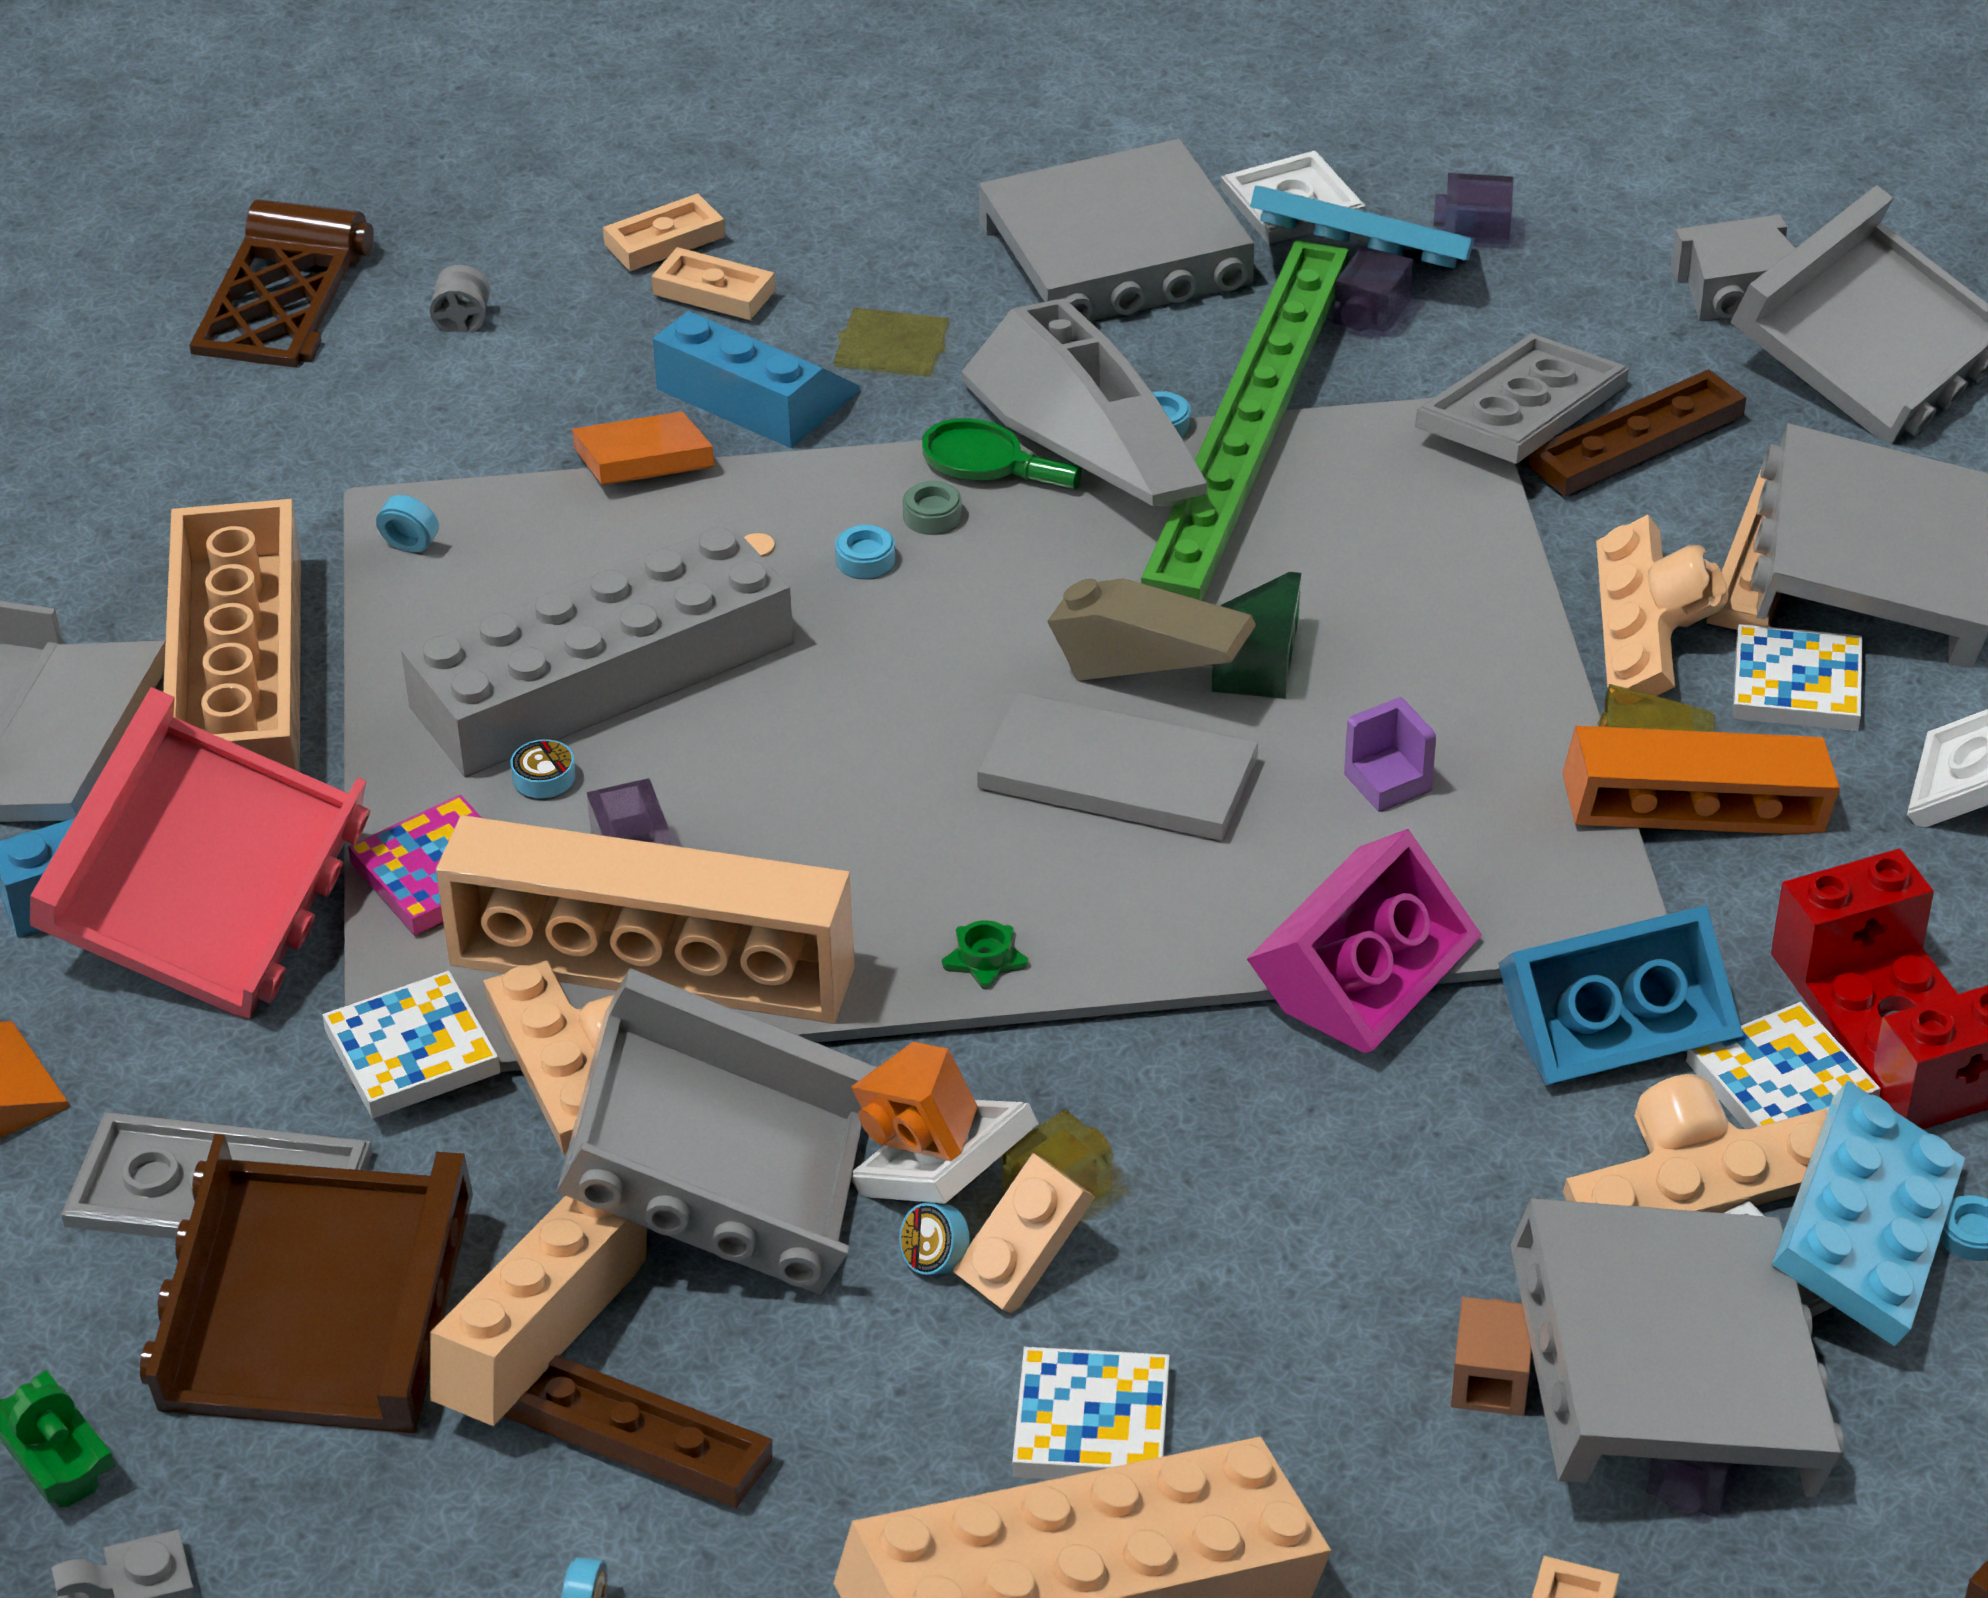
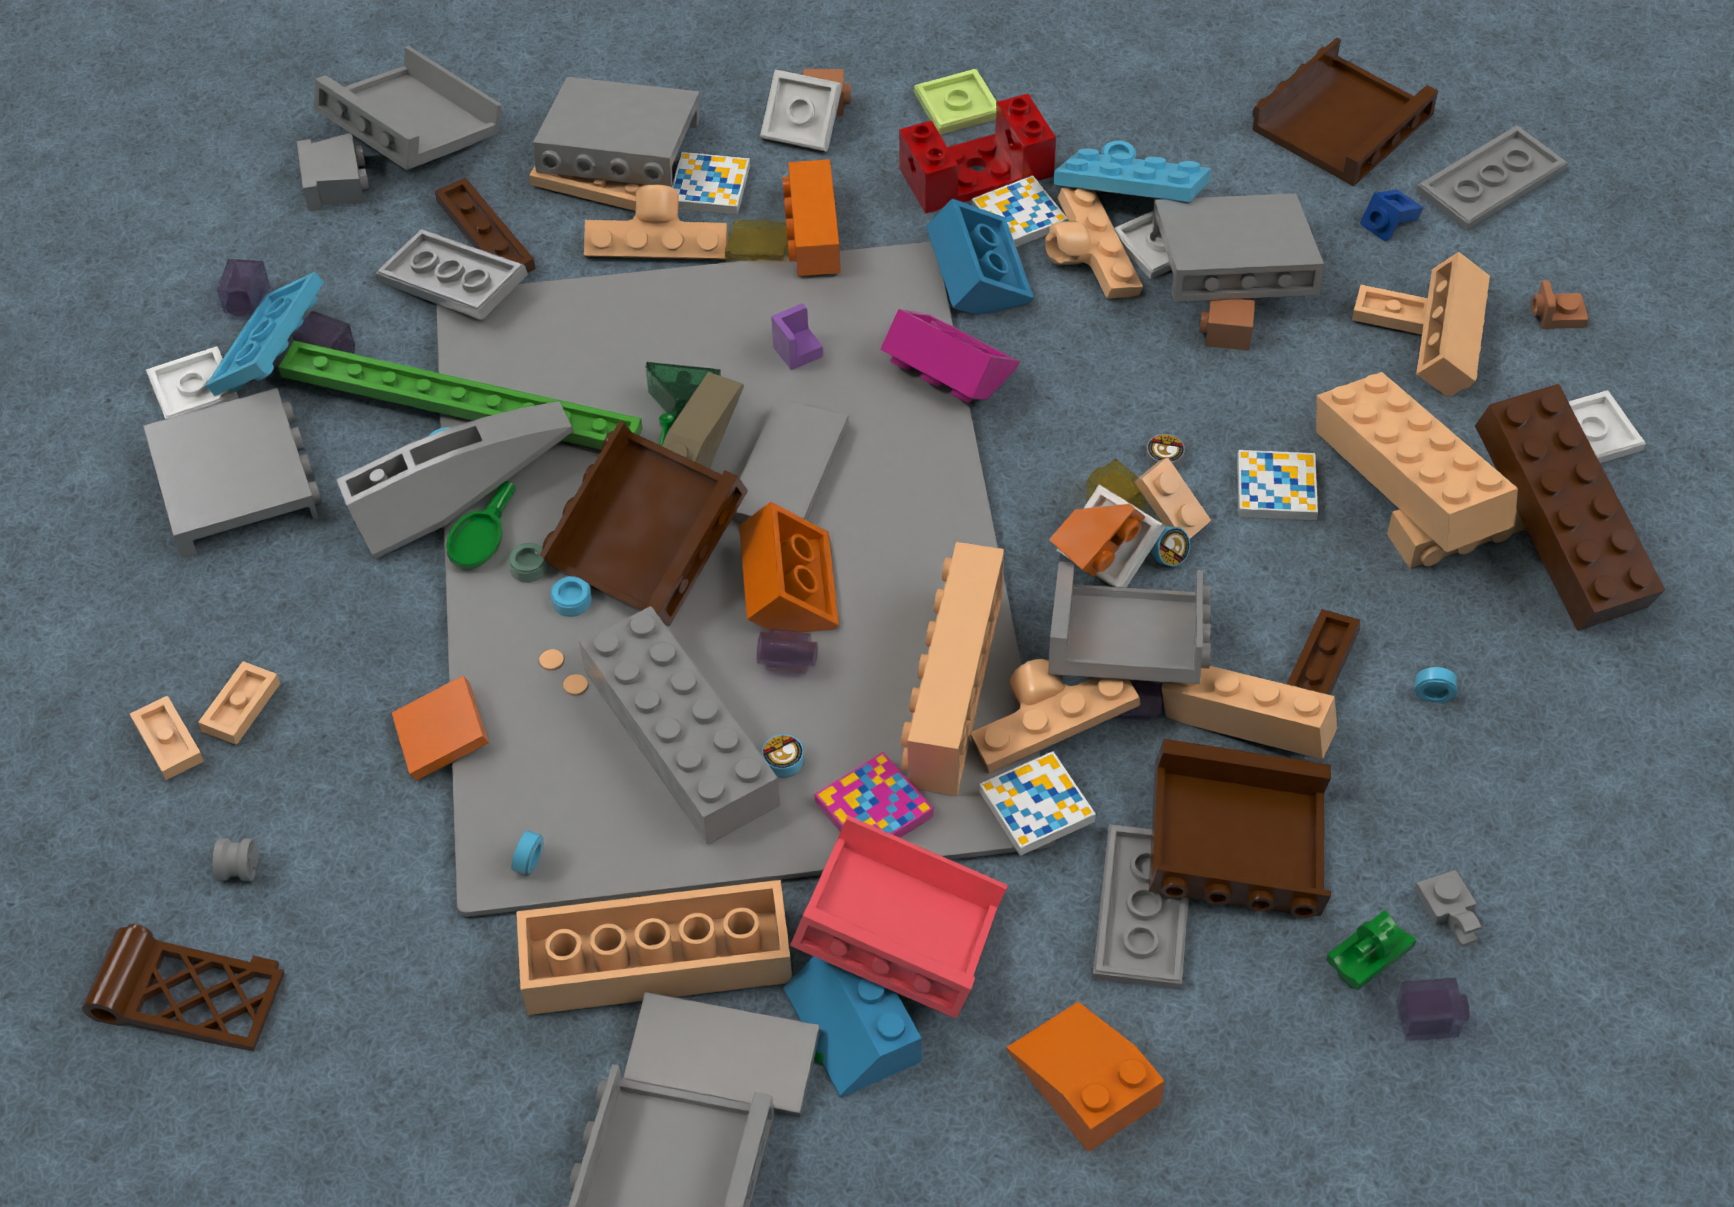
camera: 90 degrees left, 10 degrees up
(628, 813) = (859, 695): clear purple brick -> none
(725, 757) = (786, 650): none -> clear purple brick
(746, 379) = (363, 672): dark azure slope -> none
(879, 758) = (787, 572): none -> orange slope
(891, 342) = (318, 602): clear yellow piece -> none
(964, 579) = (643, 523): none -> reddish brown panel
(984, 937) = (945, 518): green plate -> none
(1172, 1257) = (1165, 446): none -> tile

